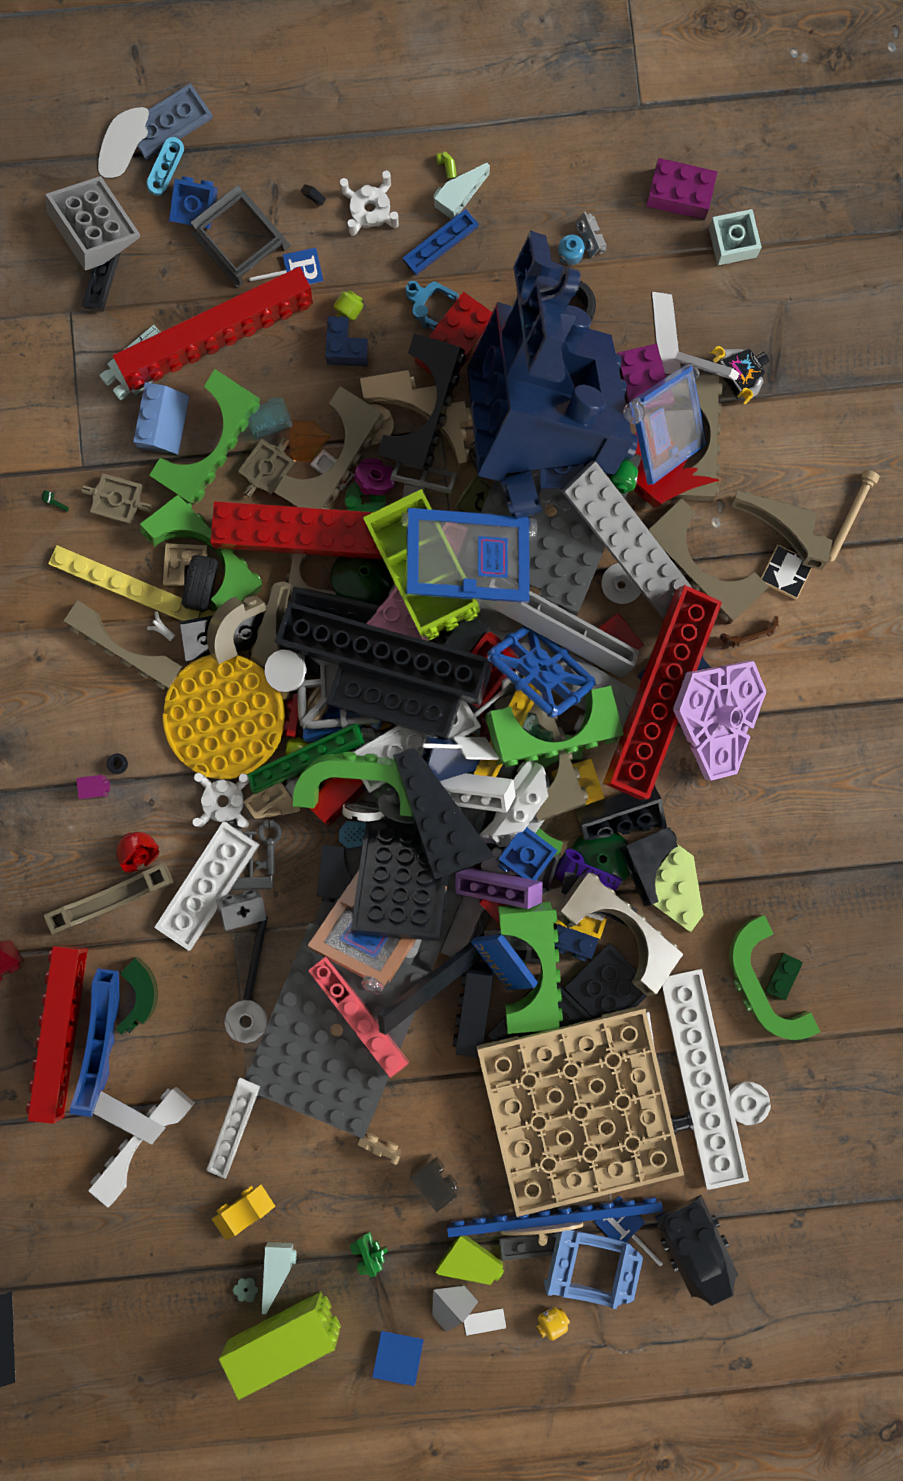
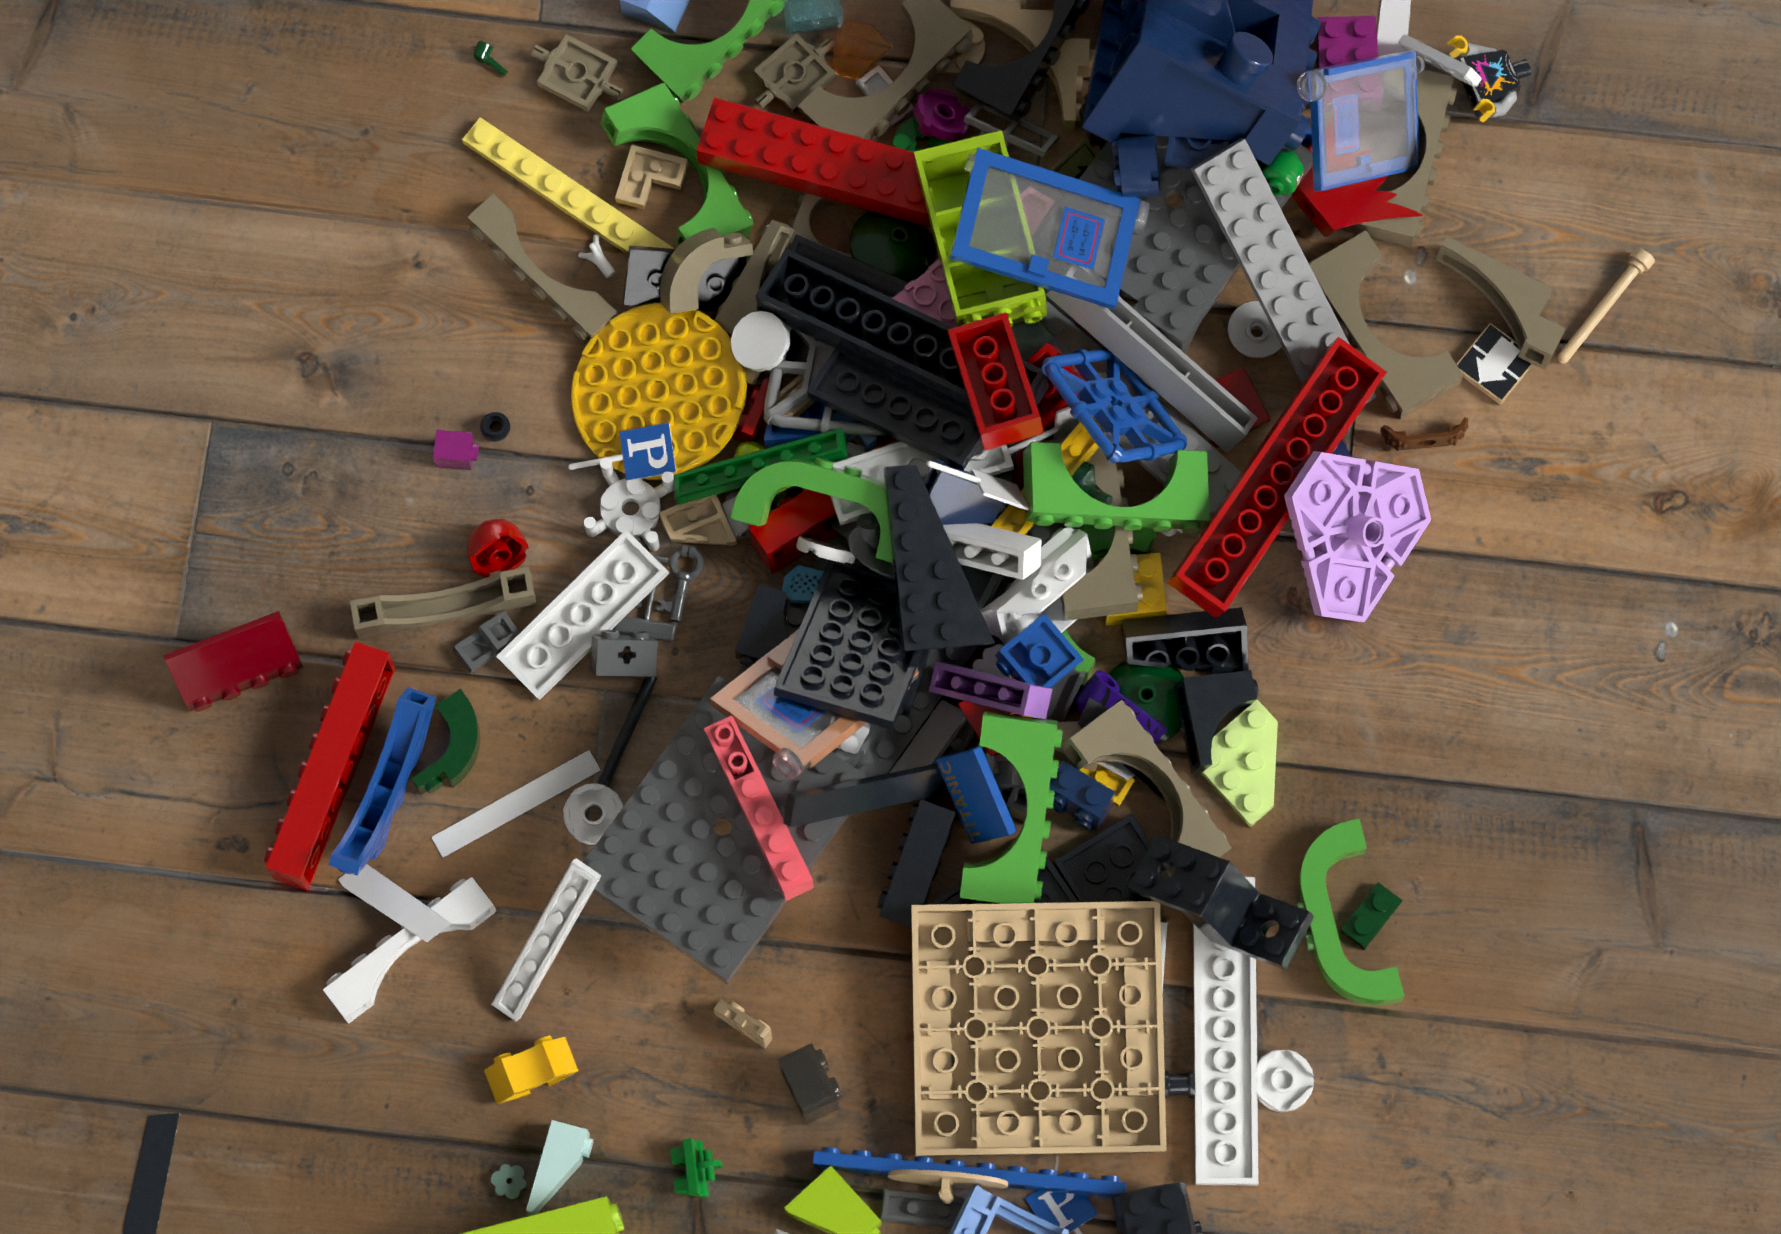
camera: 15 degrees right, 10 degrees down
(146, 917) = (486, 642): none -> dark grey slope
(191, 1025) = (516, 803): none -> white sticker
(199, 583) = (667, 204): black tyre -> none
(223, 762) = (644, 452): none -> blue piece
(457, 676) = (995, 381): none -> red brick
(686, 1000) = (1220, 901): none -> black bracket

